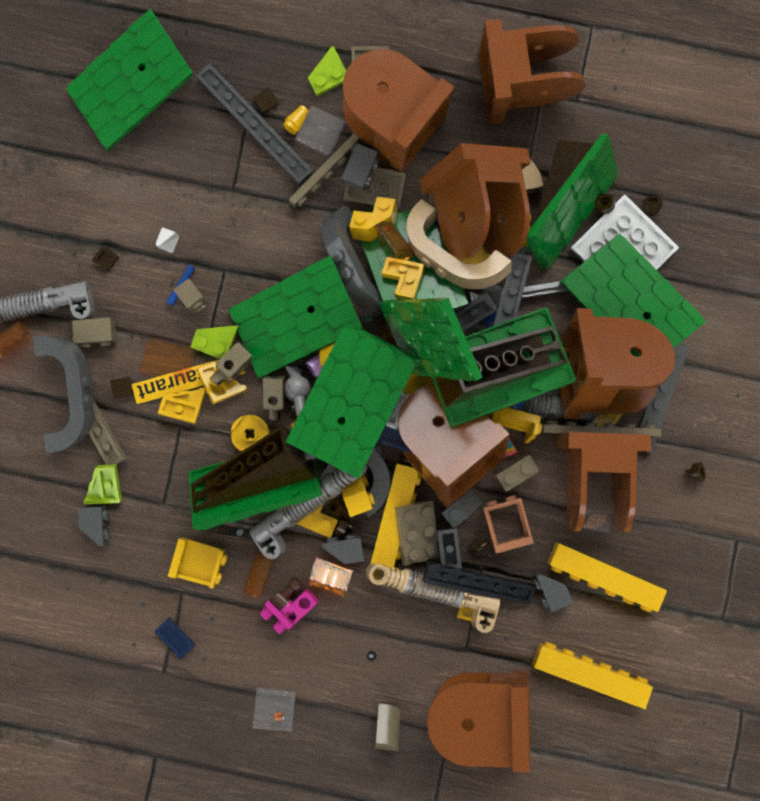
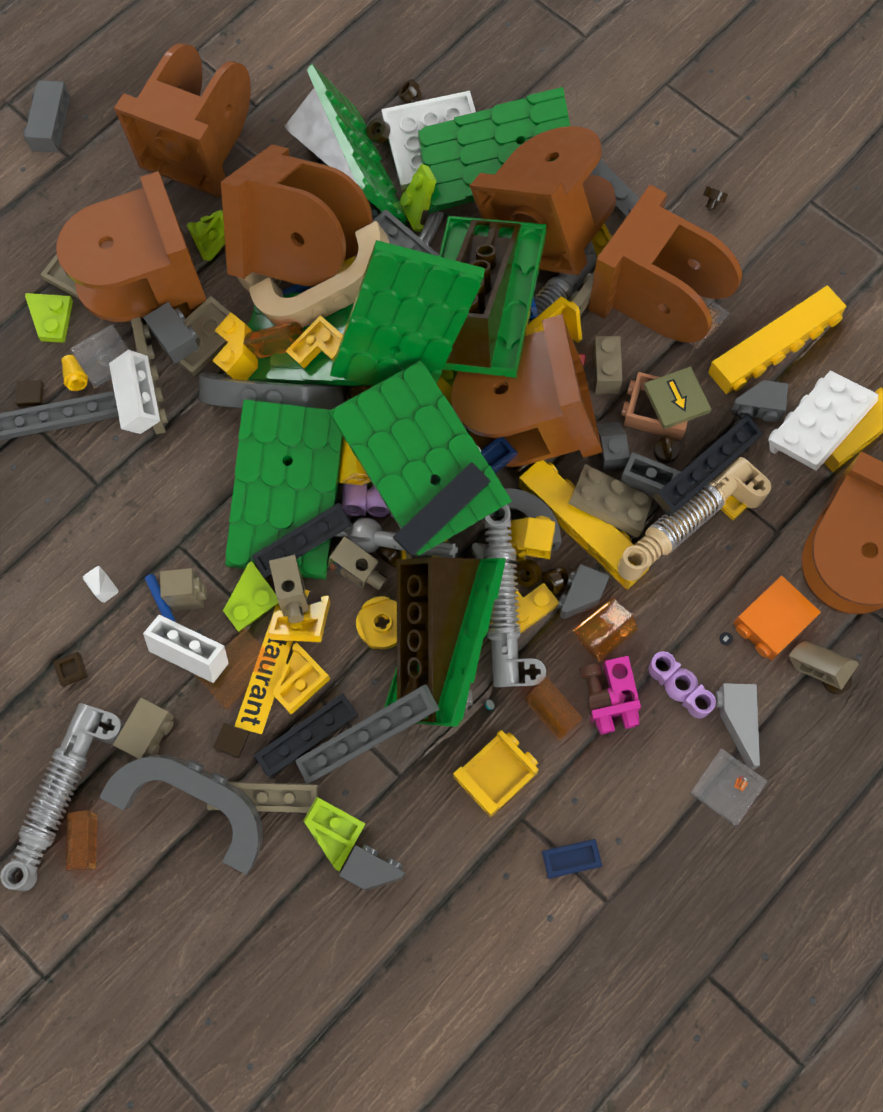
camera: 55 degrees left, 15 degrees down
(151, 432) = (306, 735): none -> black plate
(157, 324) = (186, 648): none -> white brick
(166, 474) = (367, 734): none -> dark grey plate
(269, 351) = (304, 538): none -> black tile
(301, 173) = (134, 392): none -> white brick
(317, 654) = (687, 696): none -> lavender piece
(322, 439) = (441, 509): none -> black tile
(326, 690) = (740, 717): none -> light grey slope
(401, 681) = (776, 618): none -> orange brick
(450, 138) = (208, 234): none -> lime wing
(515, 535) = (677, 398): none -> olive tile
(559, 640) = (822, 420): none -> white bracket
(565, 266) = (418, 196): none -> lime wing

